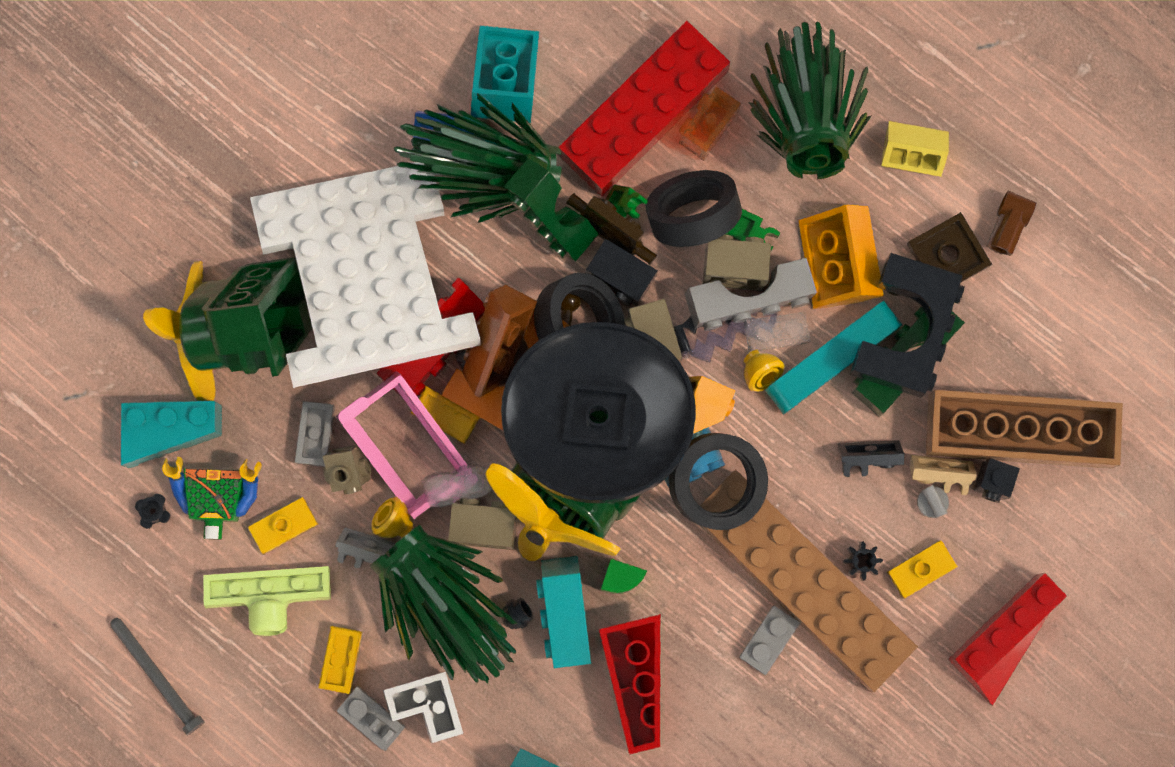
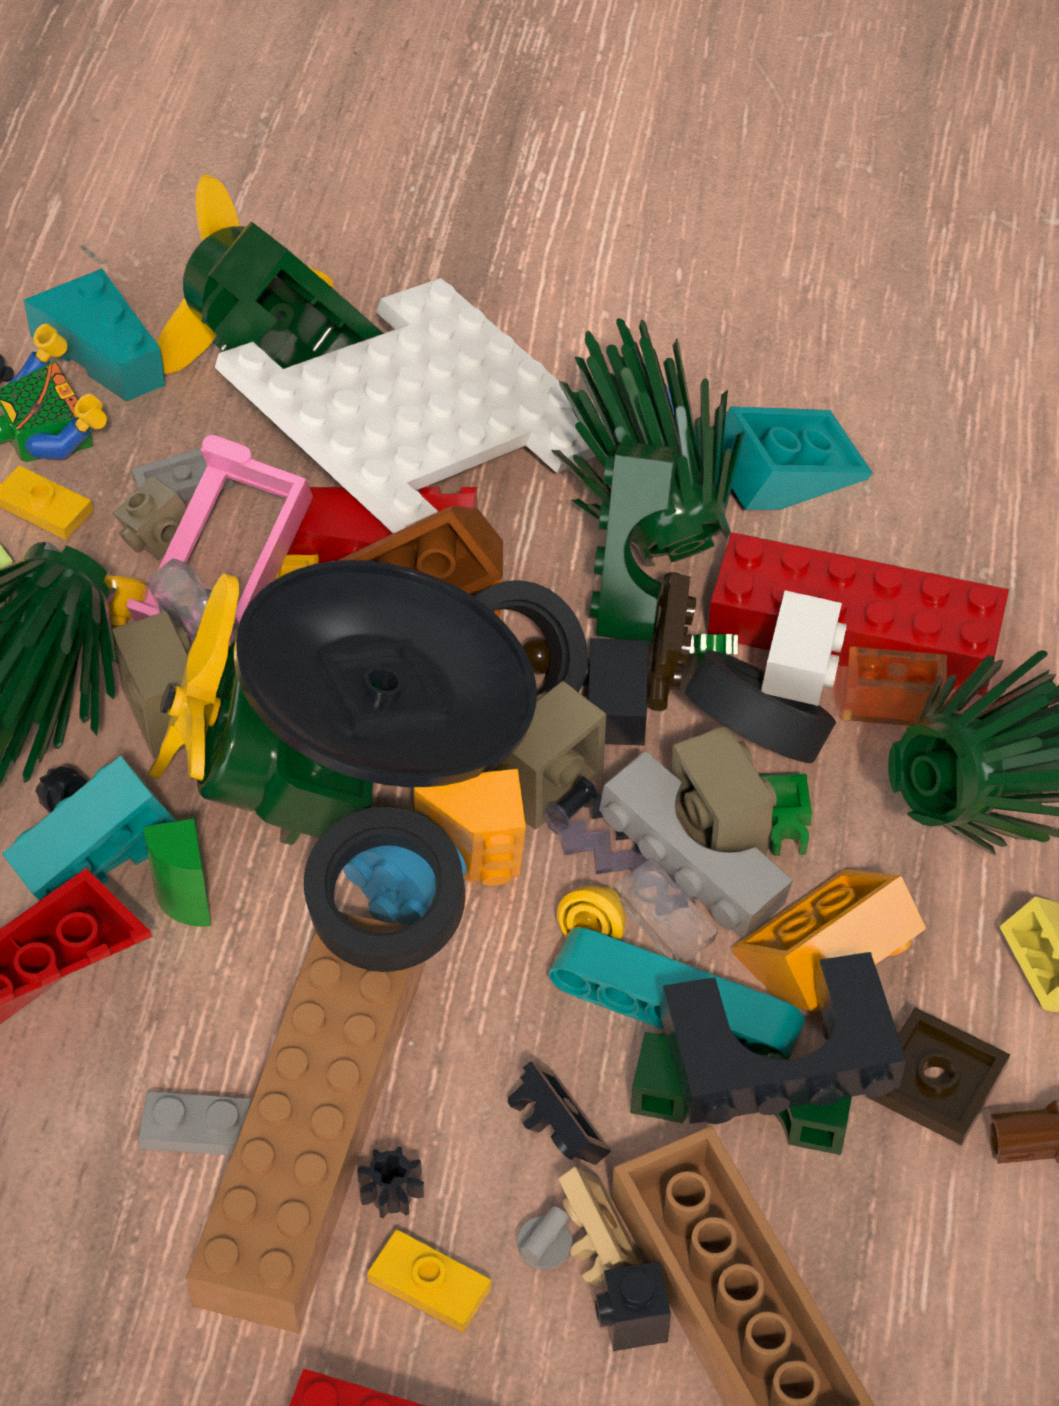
camera: 60 degrees right, 30 degrees down
(669, 162) = (802, 647): none -> white brick

